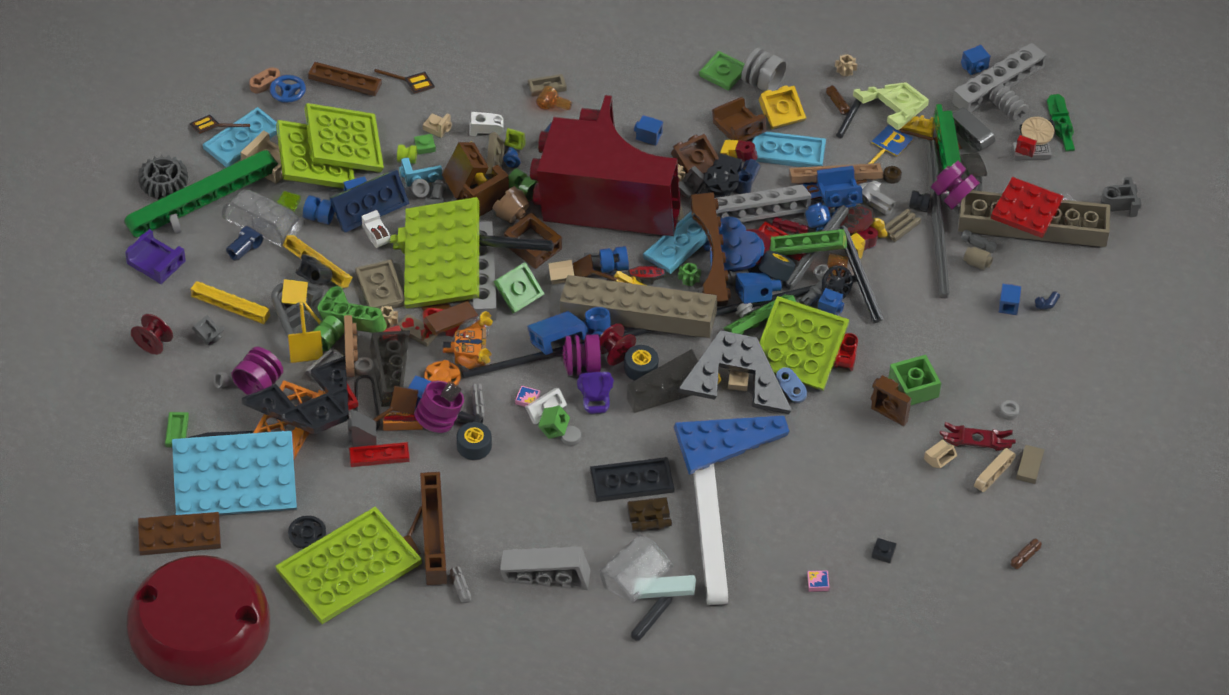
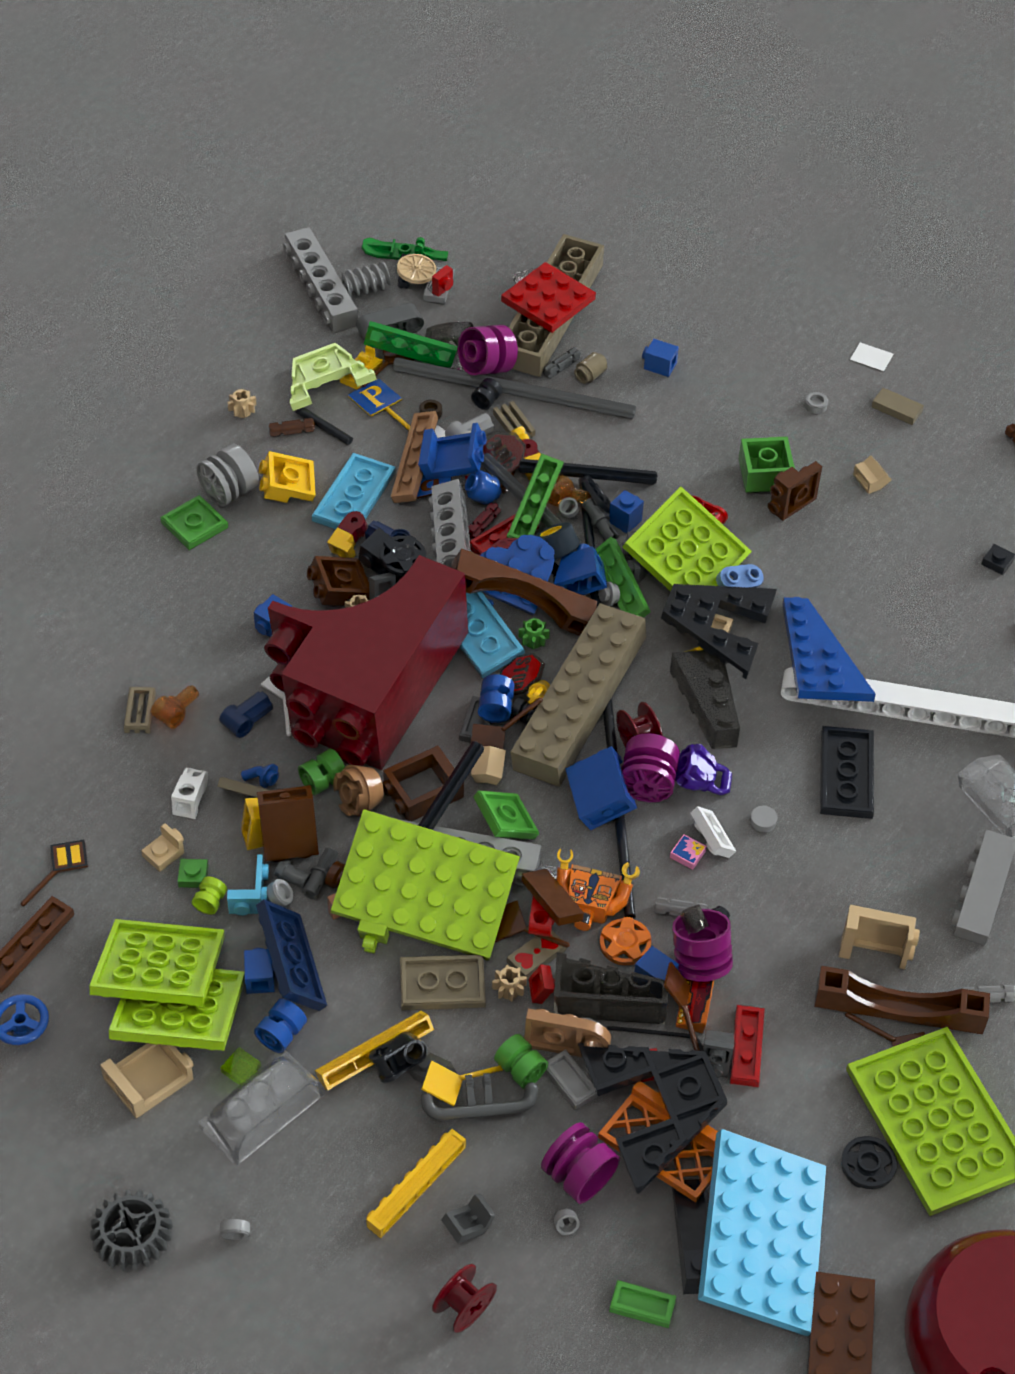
camera: 75 degrees left, 0 degrees up
(154, 257) = (294, 1273): dark purple panel -> none
(201, 193) = (191, 1182): green beam -> none
(208, 122) = (39, 1150): piece -> none
(232, 140) = (84, 1106): medium azure tile -> none
(247, 239) = (304, 1134): dark blue piece -> none
(305, 345) = (542, 1087): yellow piece -> none
(336, 304) = (499, 1017): bright green beam -> none
(375, 229) = (341, 963): white leg -> none
(474, 441) = (755, 924): black wheel -> none
(478, 495) = (879, 932): none -> tan panel
(489, 191) = (328, 799): reddish brown panel -> none
(515, 139) = (233, 763): lime slope -> none
(554, 421) = (745, 826): bright green brick -> none
(597, 320) = (600, 734): blue wheel -> none
(640, 361) = (672, 713): black wheel -> none
(649, 510) = (899, 766): dark brown plate -> none
(738, 121) = (296, 525): reddish brown panel -> none
(975, 60) = (284, 290): blue brick -> none
(991, 439) = (854, 427): dark red piece -> none
(994, 470) = (913, 442): tan beam -> none
(1049, 303) = (671, 330): dark blue arm -> none
(1084, 441) = (871, 356): none -> white sticker
(1122, 197) = (540, 229): dark grey pin -> none

